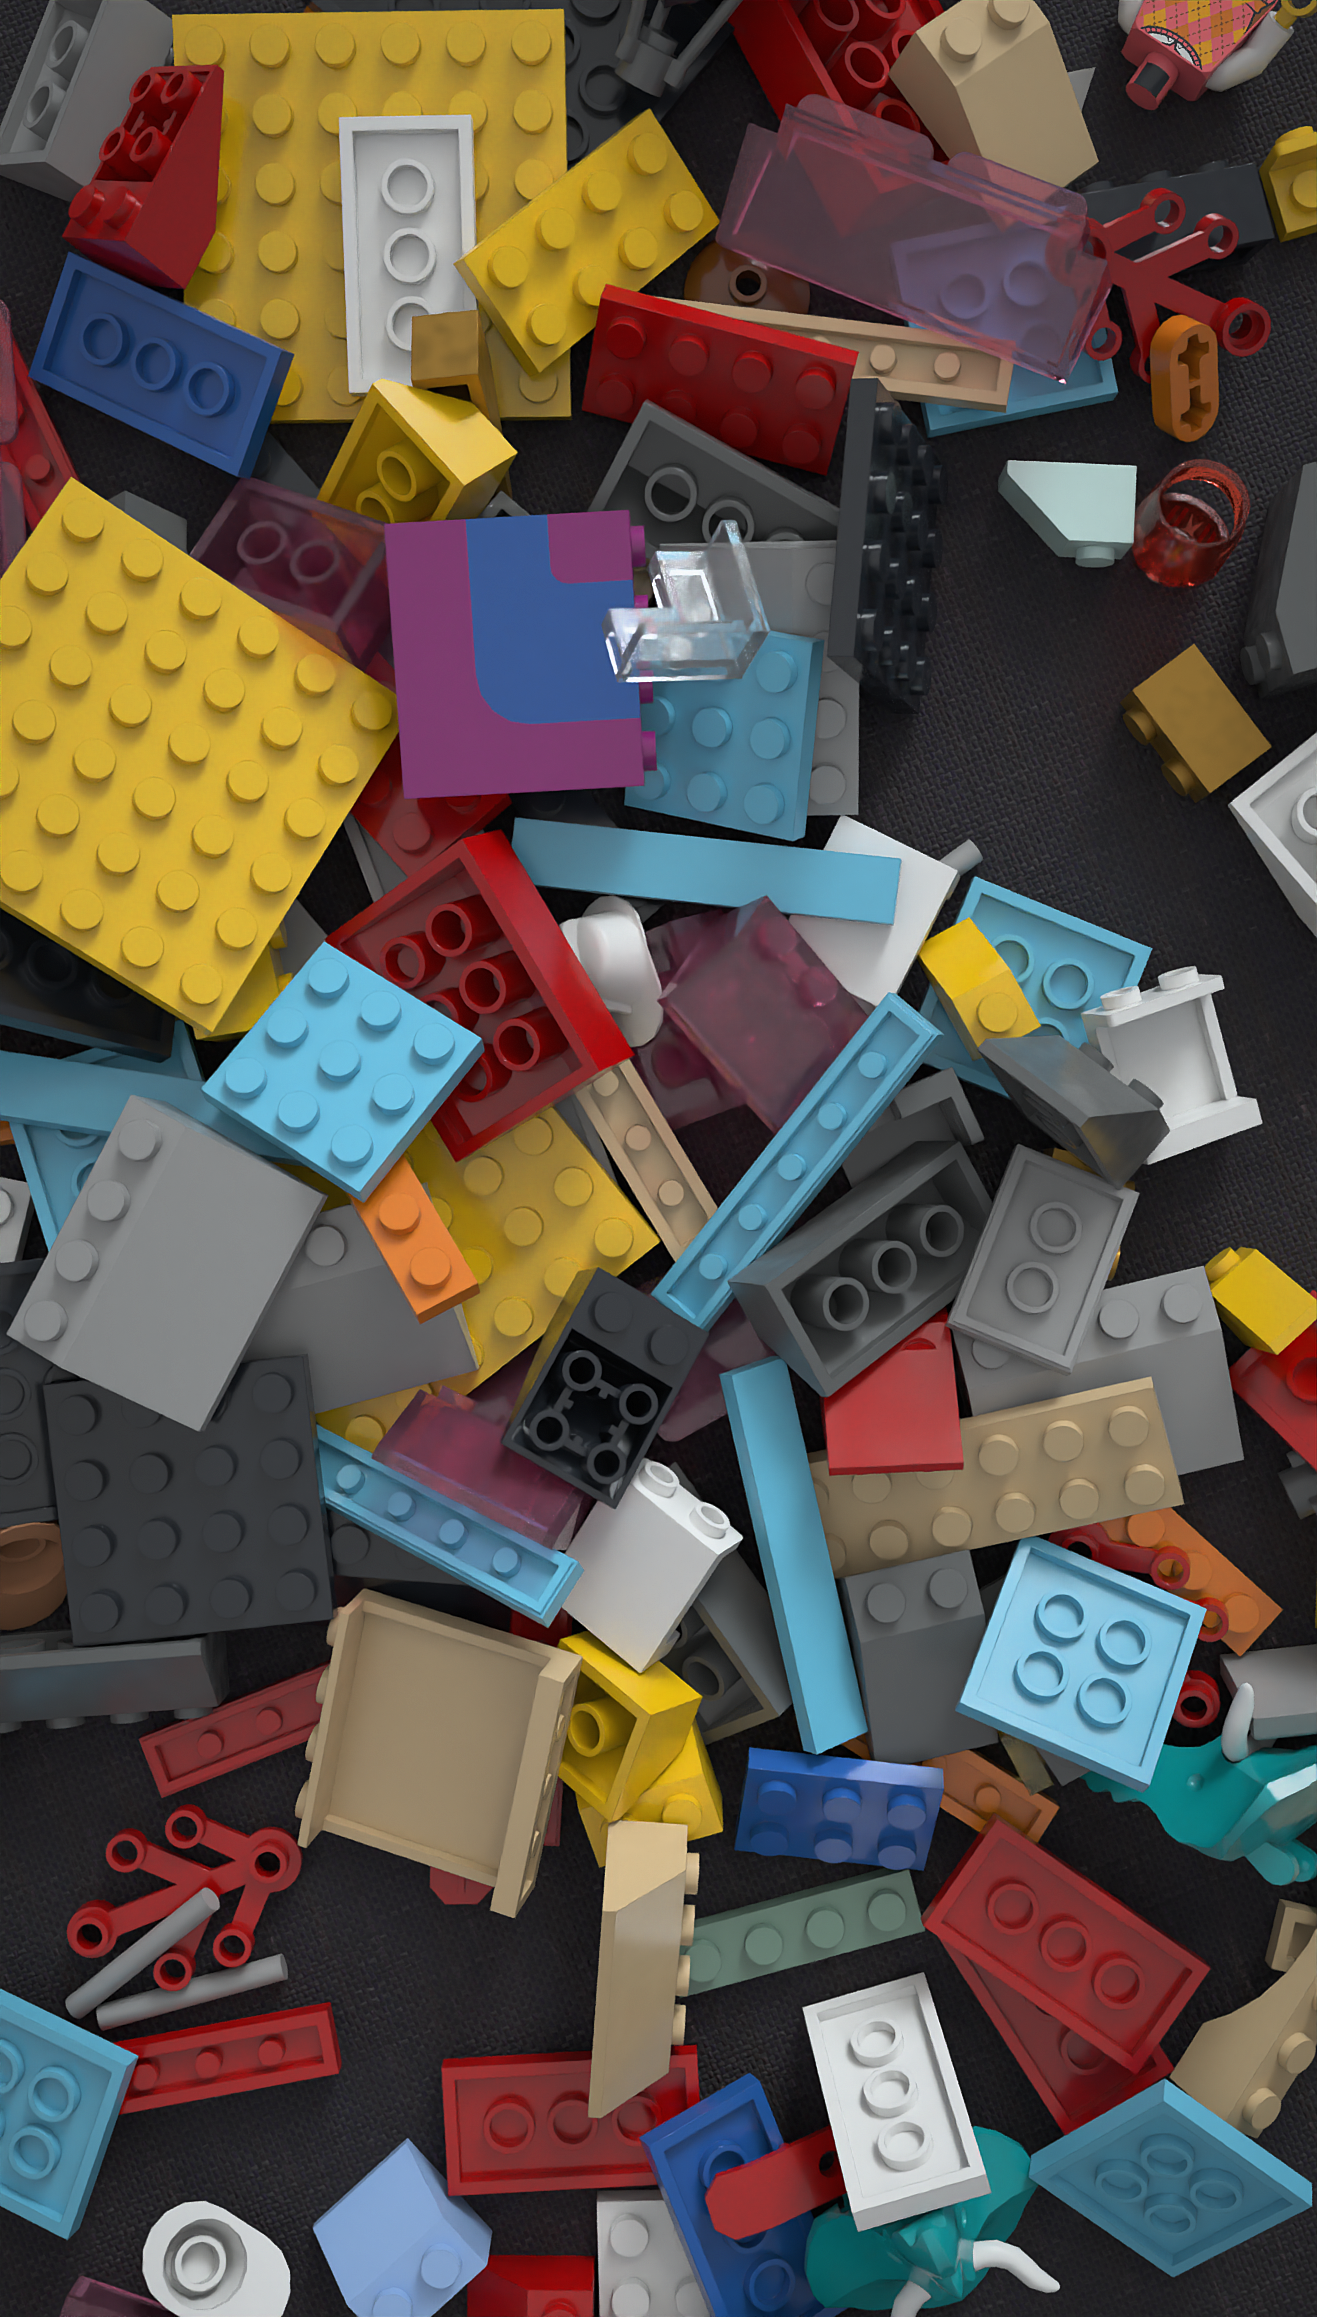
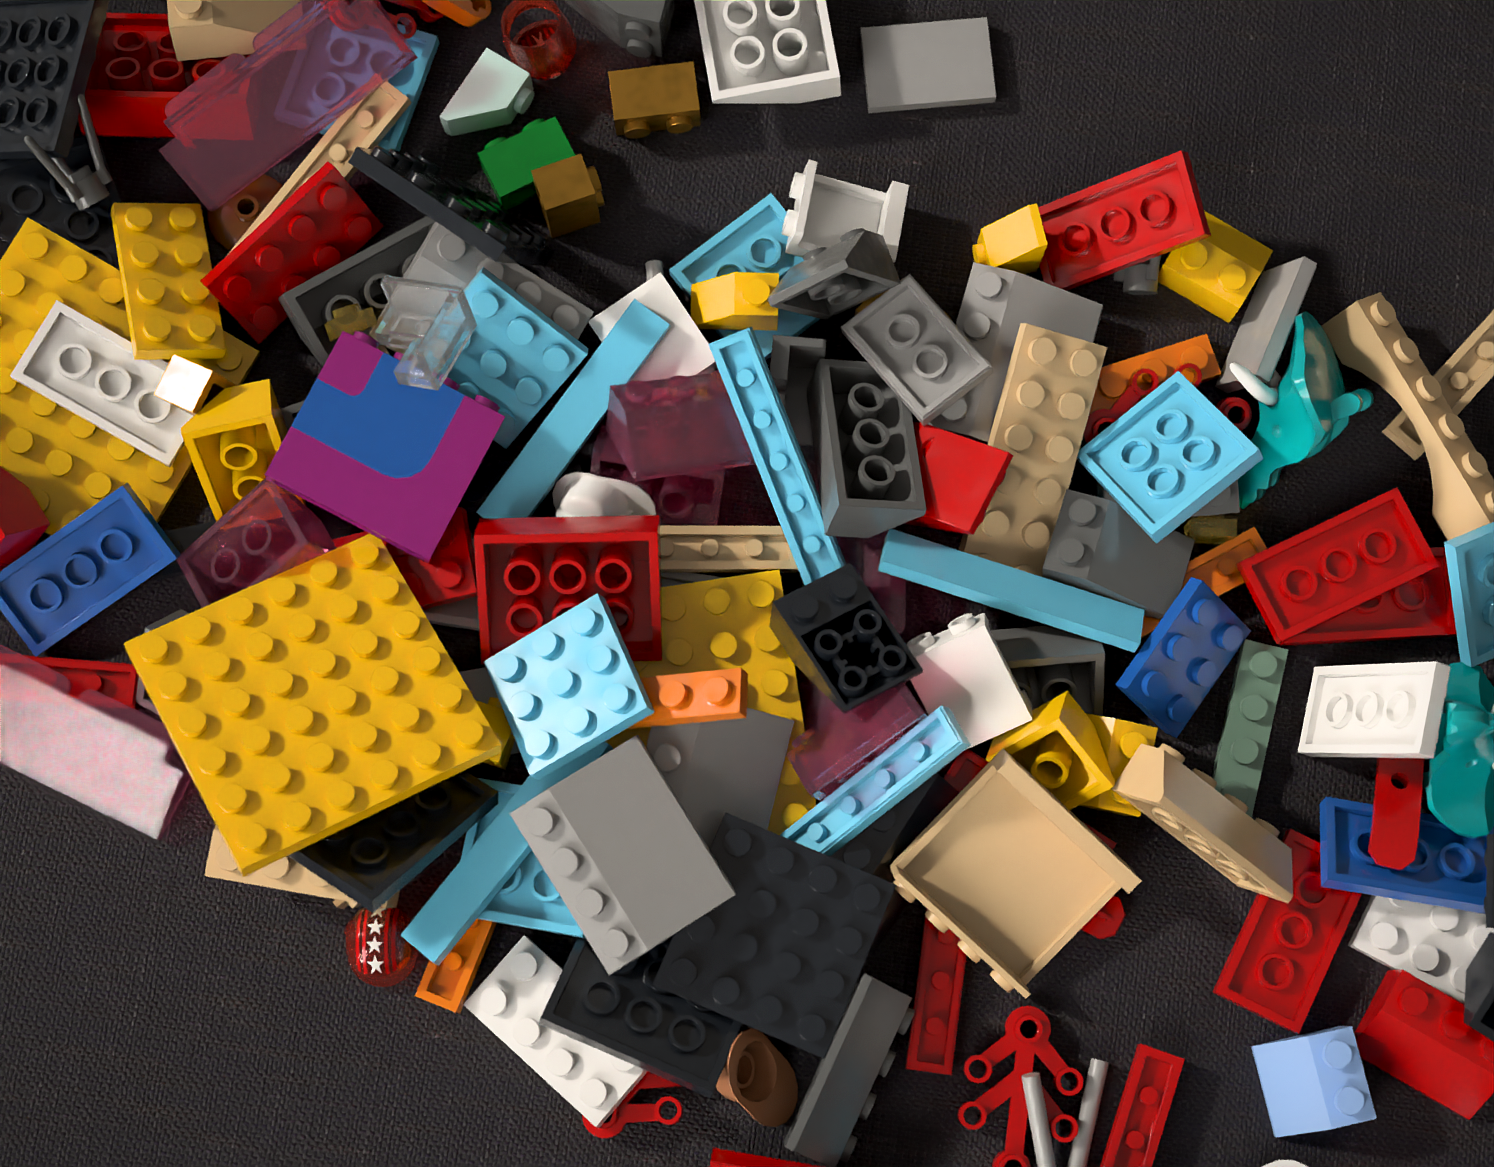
camera: 60 degrees left, 10 degrees down
(658, 510) = (350, 320): none -> clear yellow plate
(996, 689) = (568, 195): none -> pearl gold brick
(1015, 611) = (510, 160): none -> green brick

